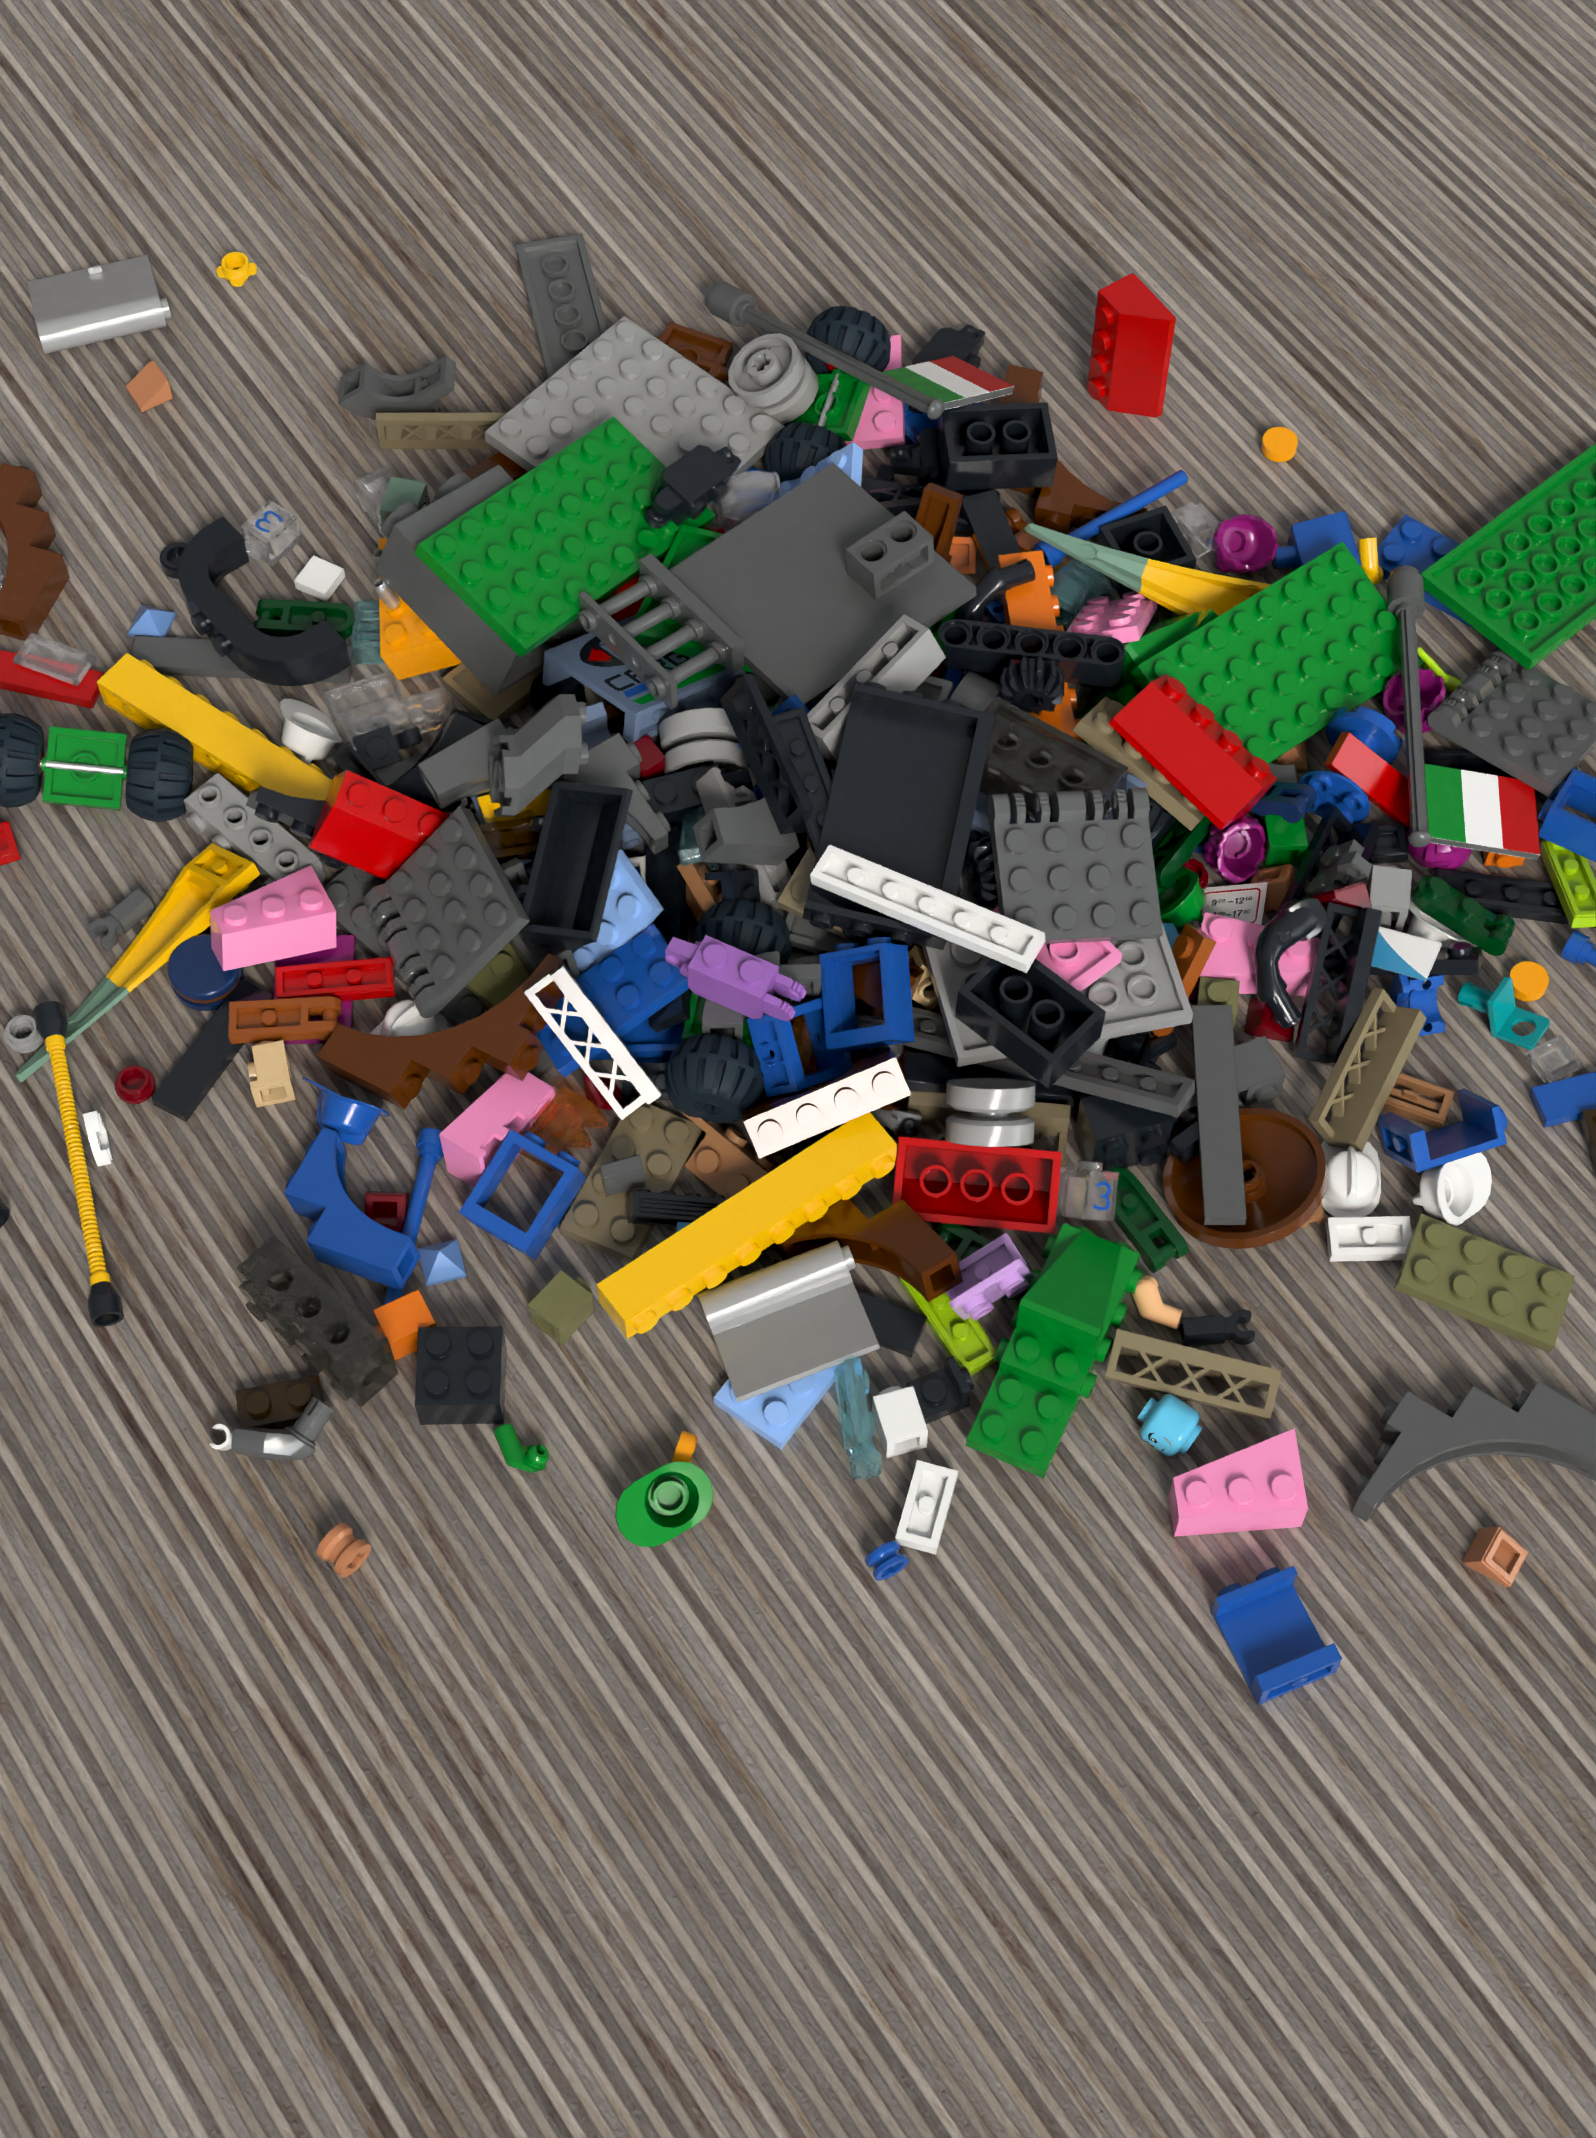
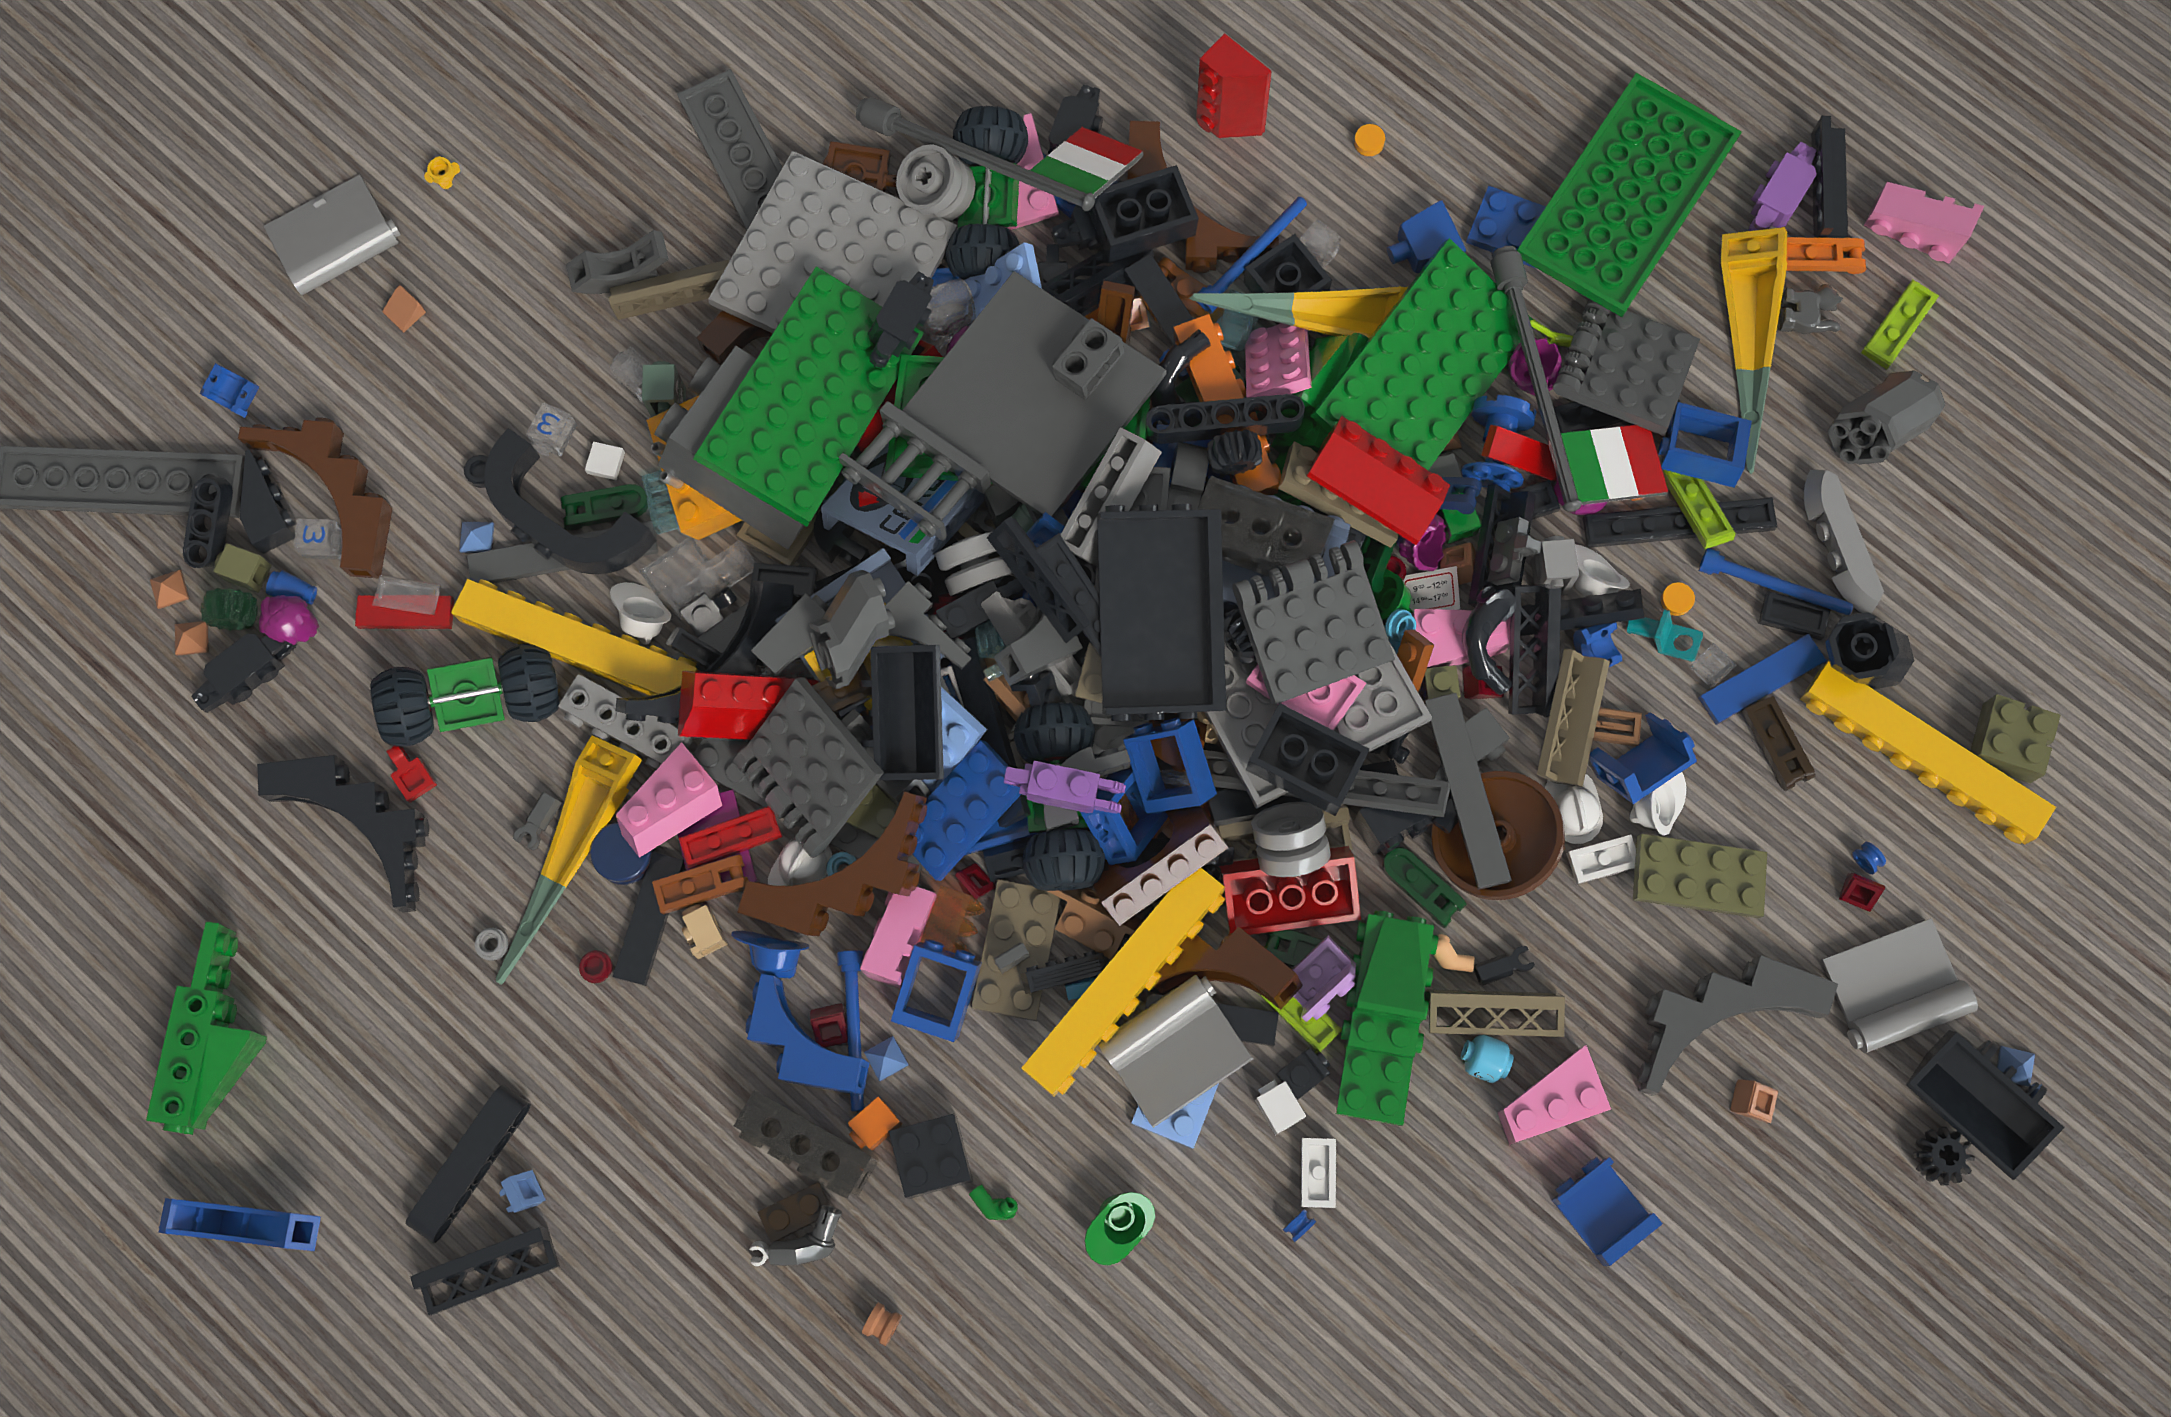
camera: 10 degrees left, 15 degrees up
(98, 1138) = (581, 1023): white tile -> none
(103, 1301) = (629, 1161): yellow hose -> none
(561, 1306) = (993, 1076): olive brick -> none
(603, 1031) = (963, 848): fence -> none
(652, 758) = (934, 585): dark red slope -> none
(685, 1447) = (1121, 1176): light orange tile -> none
(856, 1420) = (1247, 1117): clear light blue hinge -> none
(928, 908) = (1206, 693): white plate -> none
(1087, 1192) = (1379, 880): clear brick -> none
(1172, 921) = (1399, 622): none -> medium azure plate
(1244, 544) = (1365, 250): magenta hair -> none
(1350, 895) = (1525, 575): dark red slope -> none
(1369, 559) = (1470, 240): yellow arm -> none
(1404, 953) = (1584, 612): white sticker -> none
(1463, 915) = (1617, 556): dark green plate -> none

